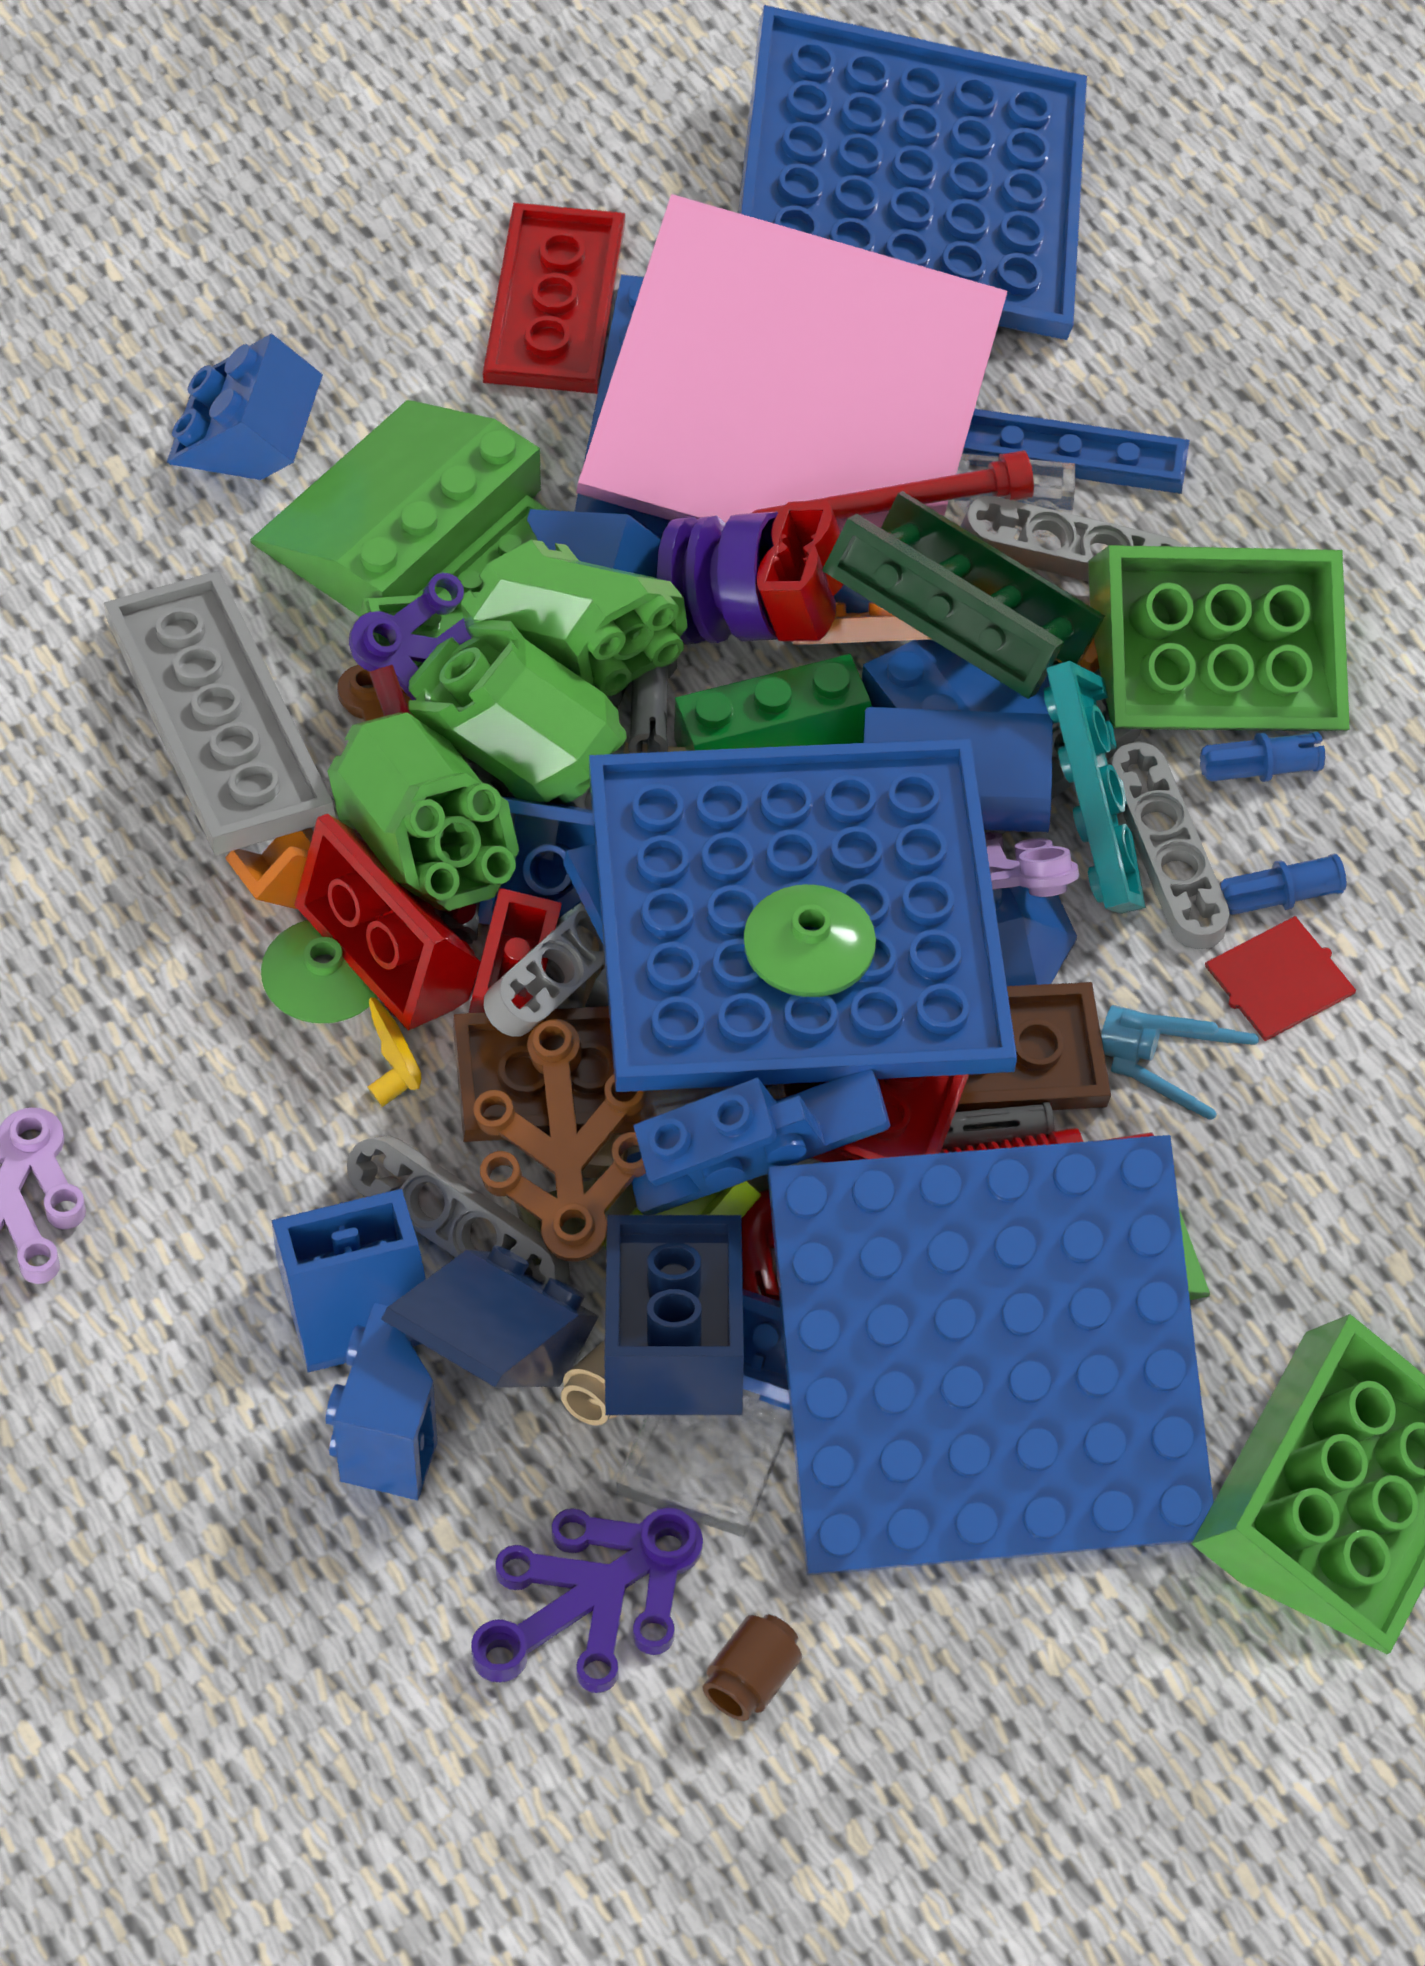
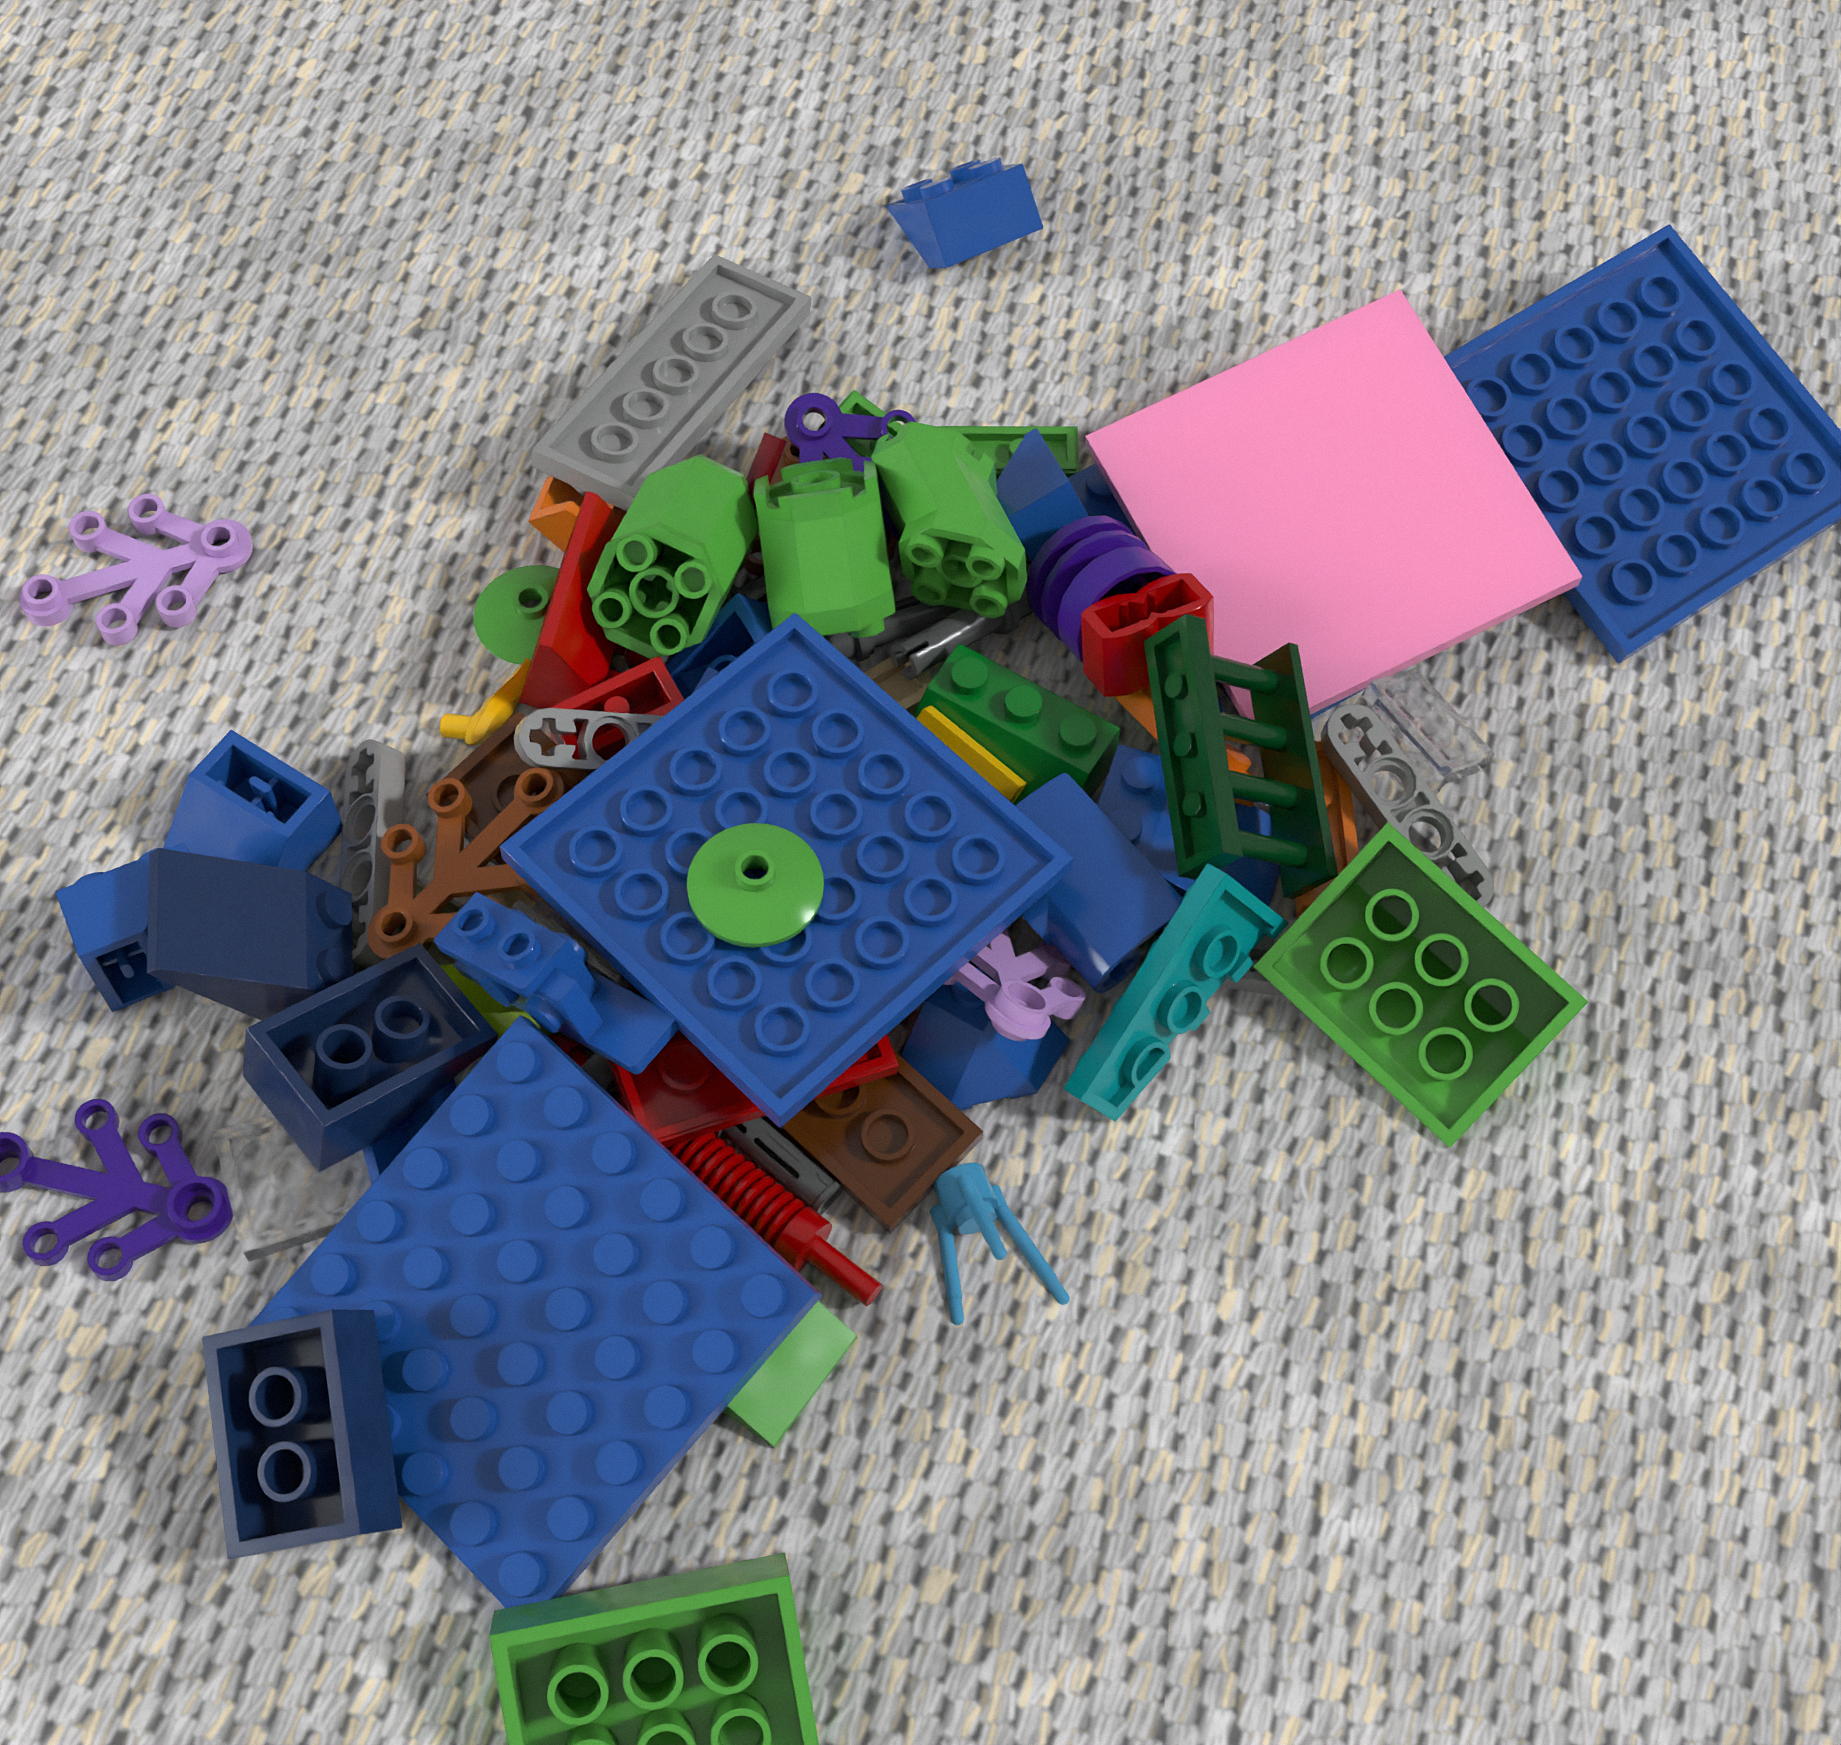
camera: 50 degrees right, 5 degrees up
(403, 503) = (986, 361): bright green slope -> none
(554, 298) = (1274, 304): red tile -> none
(752, 1666) = (118, 1352): reddish brown brick -> none
(959, 1559) = (301, 1432): none -> dark blue brick
(1006, 478) = (1399, 708): red piece -> none
(1097, 451) = (1523, 754): blue tile -> none
(1174, 844) = (1186, 1091): light grey beam -> none
(1262, 757) = (1345, 1099): blue axle -> none
(1280, 978) = (1143, 1276): red piece -> none
(1284, 884) = (1232, 1208): blue axle -> none

